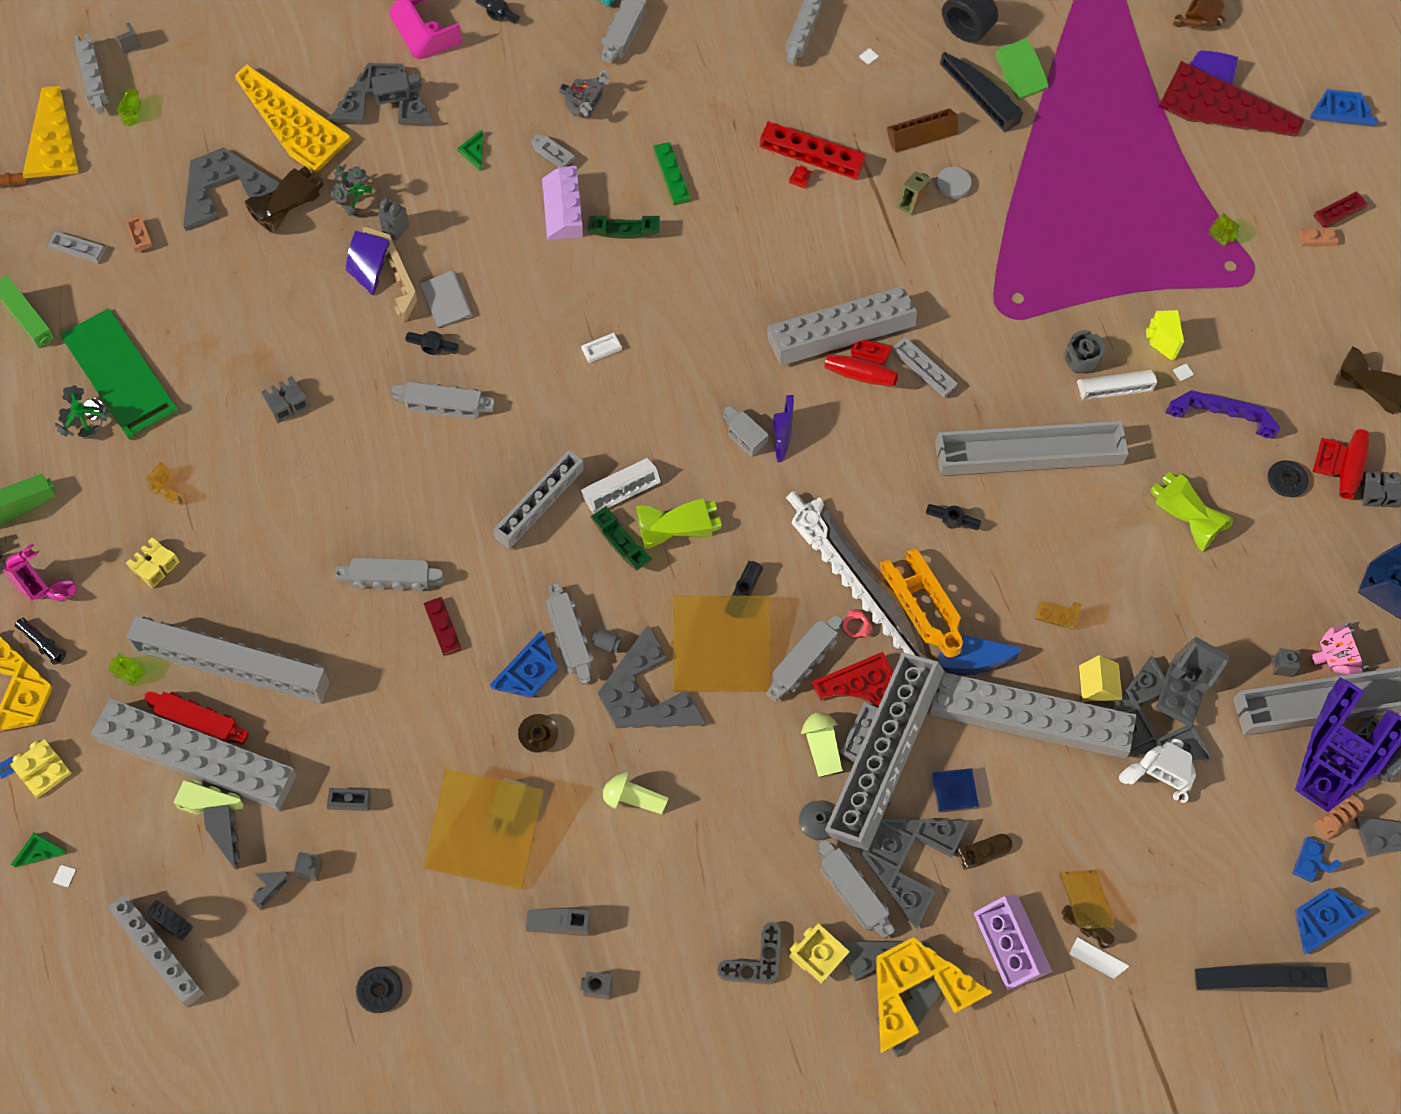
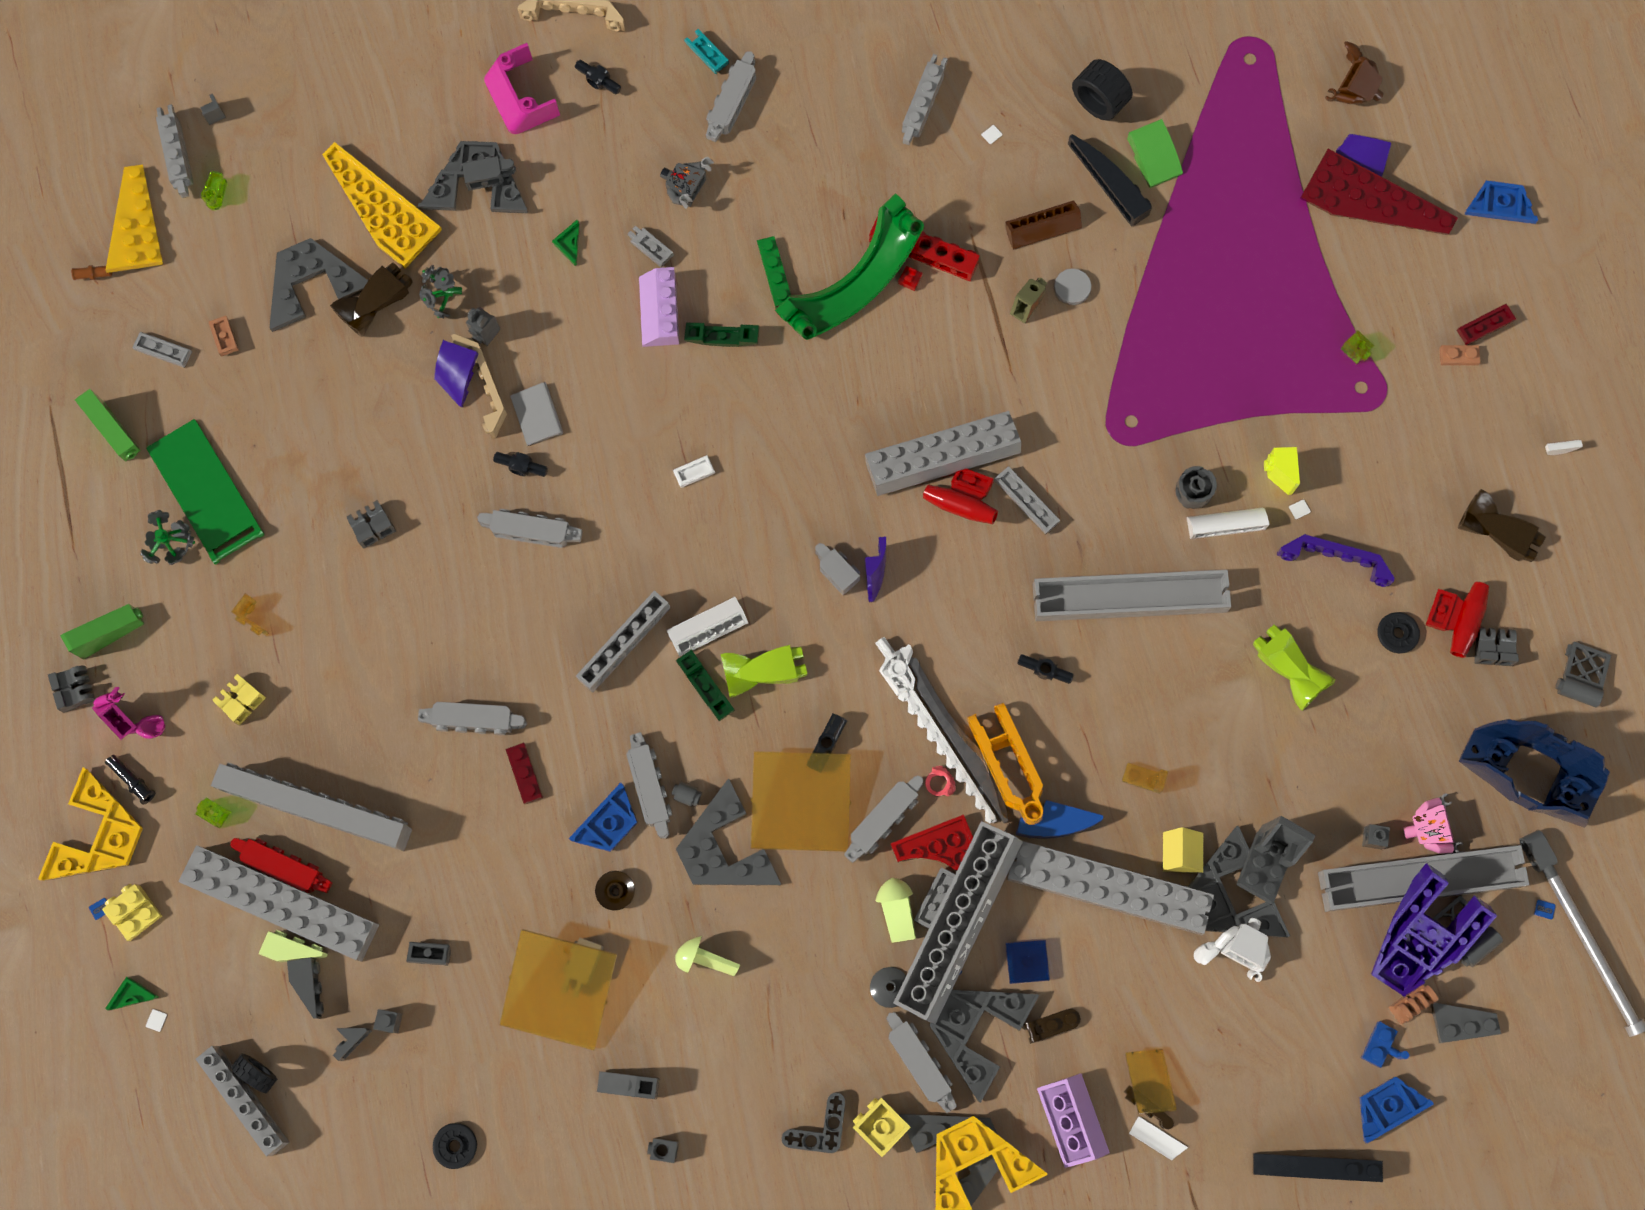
camera: 10 degrees right, 10 degrees up
(777, 153) = (891, 244): none -> green panel

